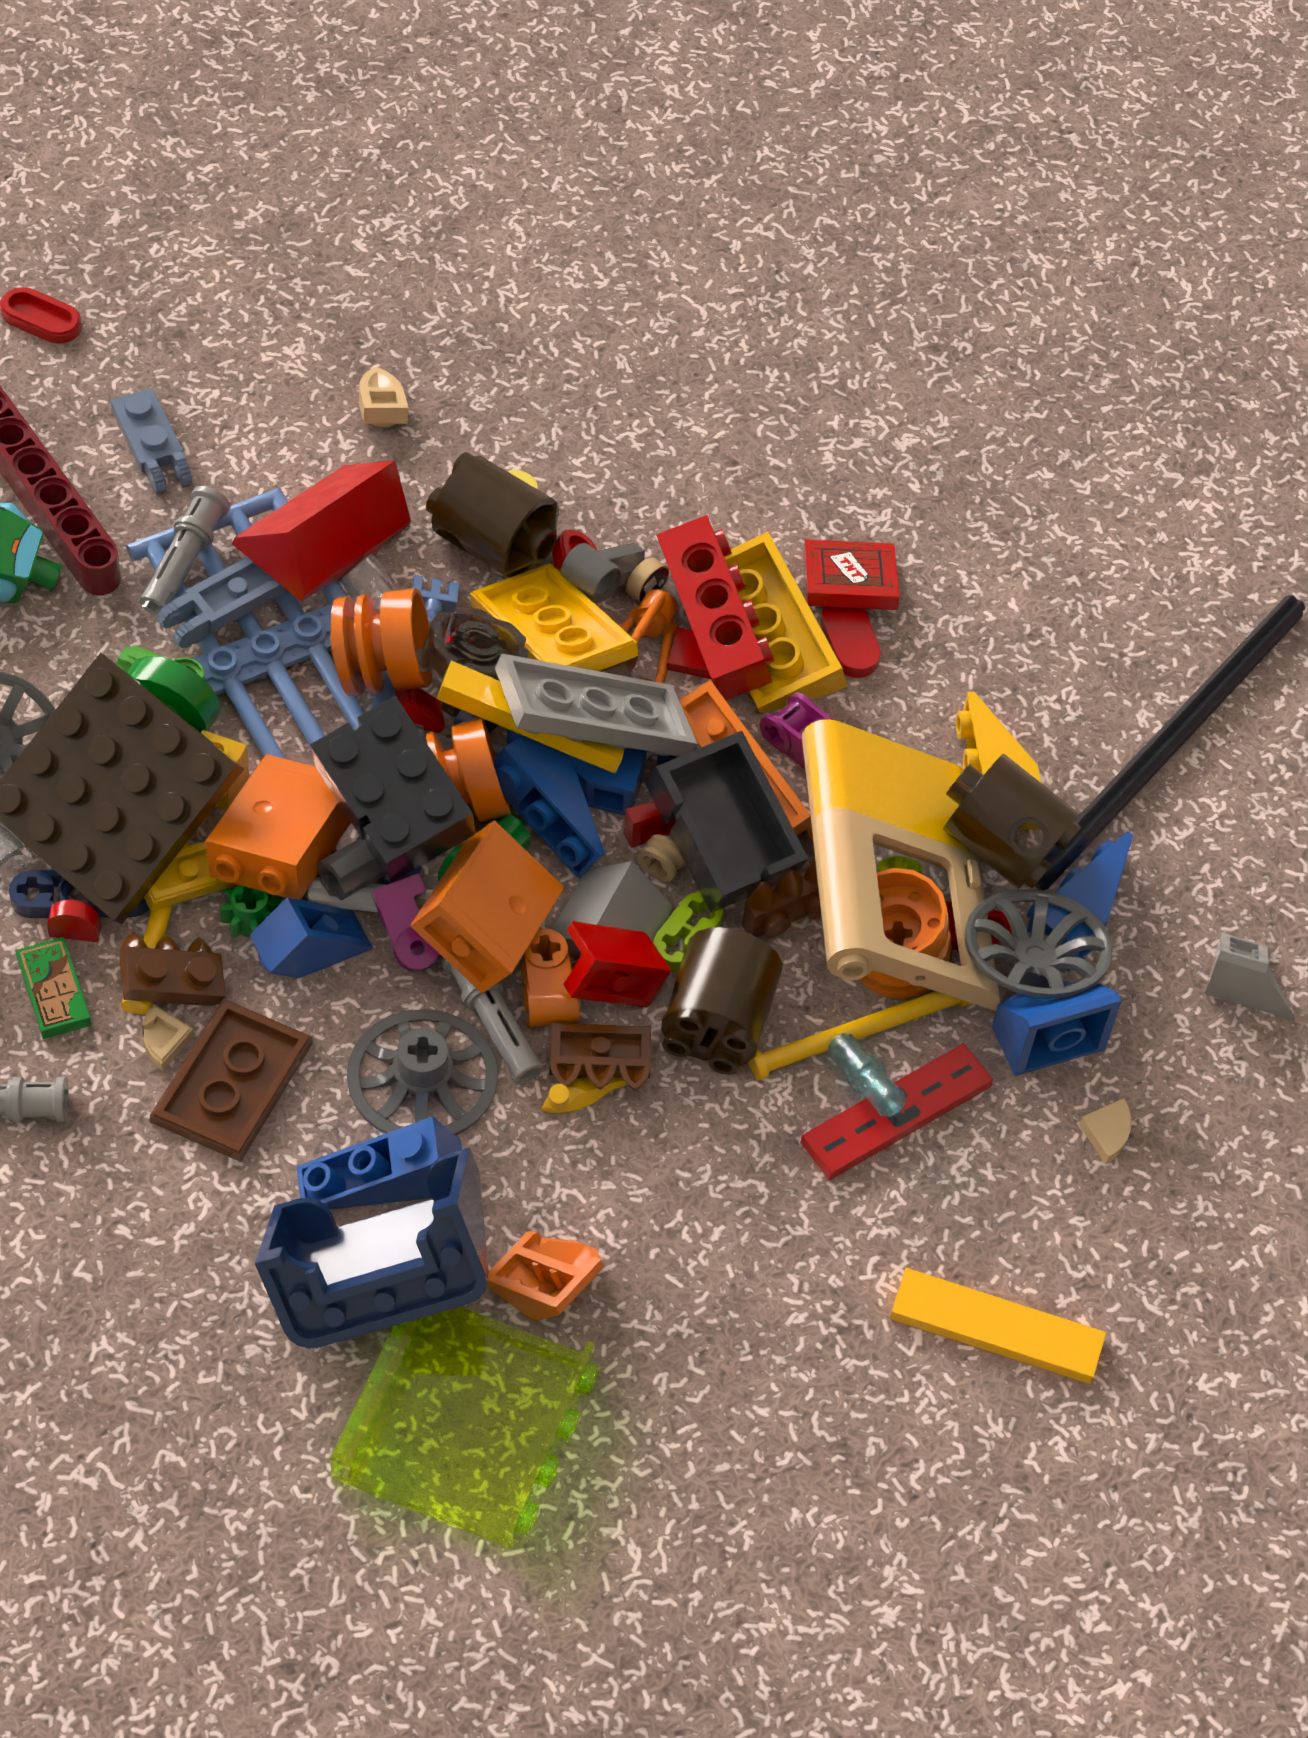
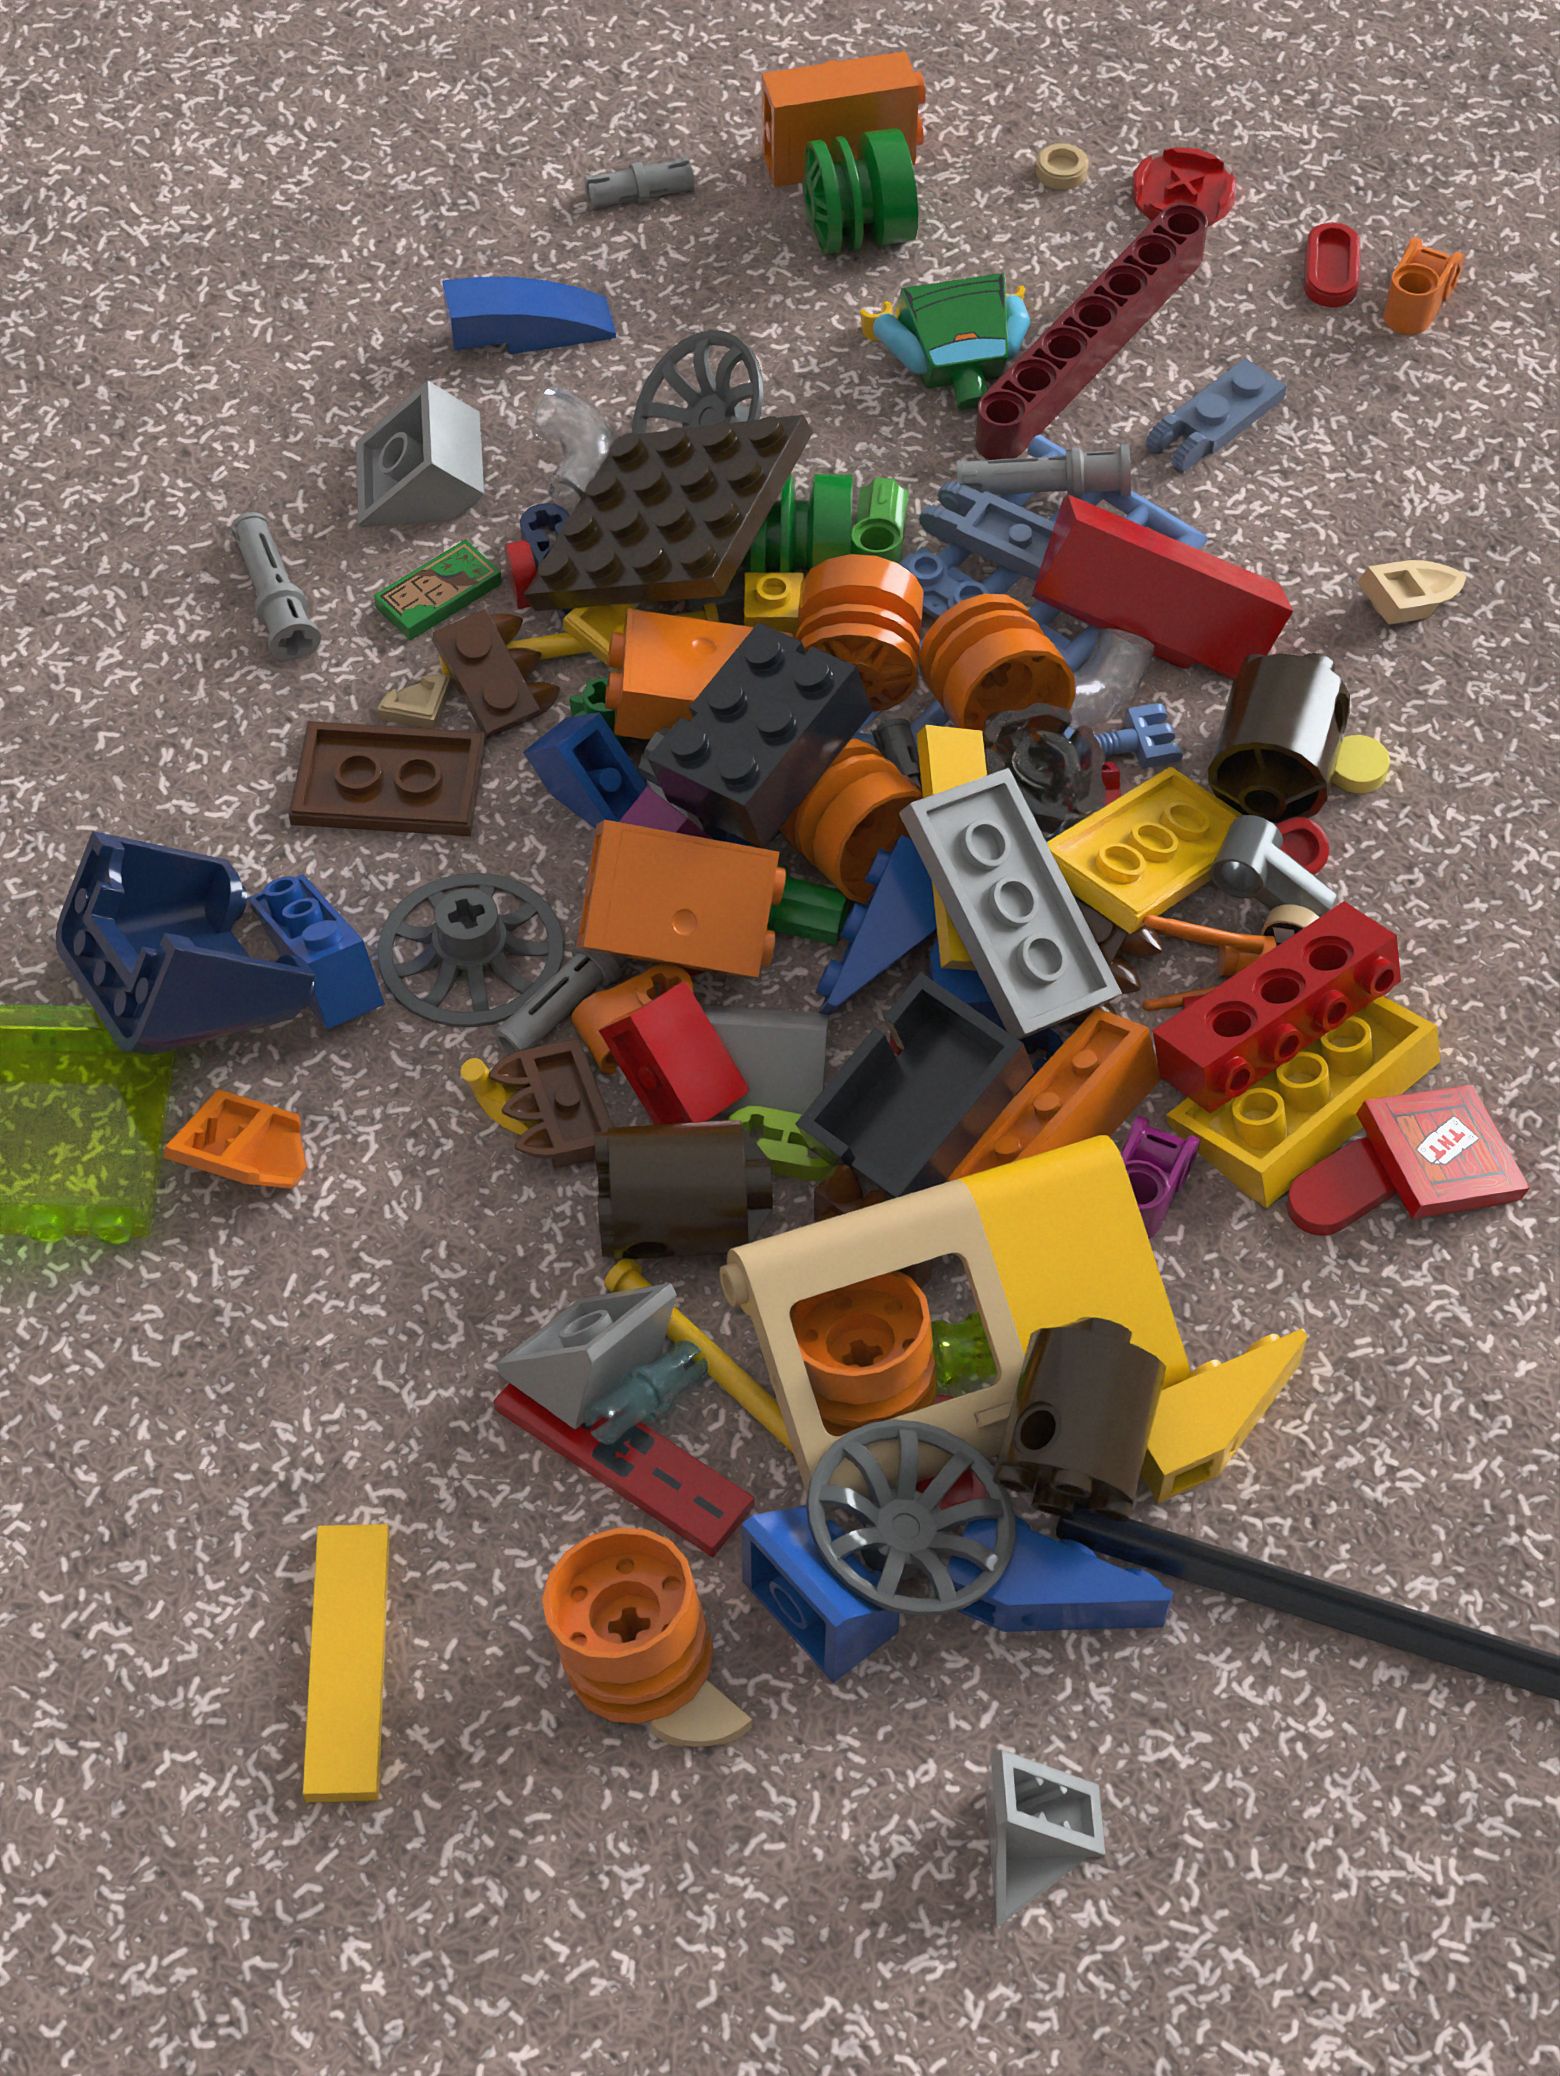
camera: 75 degrees right, 0 degrees up
(100, 273) = (1420, 287): none -> orange piece
(289, 708) = (869, 617): none -> orange wheel
(824, 1092) = (590, 1349): none -> light grey slope
(1046, 1108) = (628, 1625): none -> orange wheel

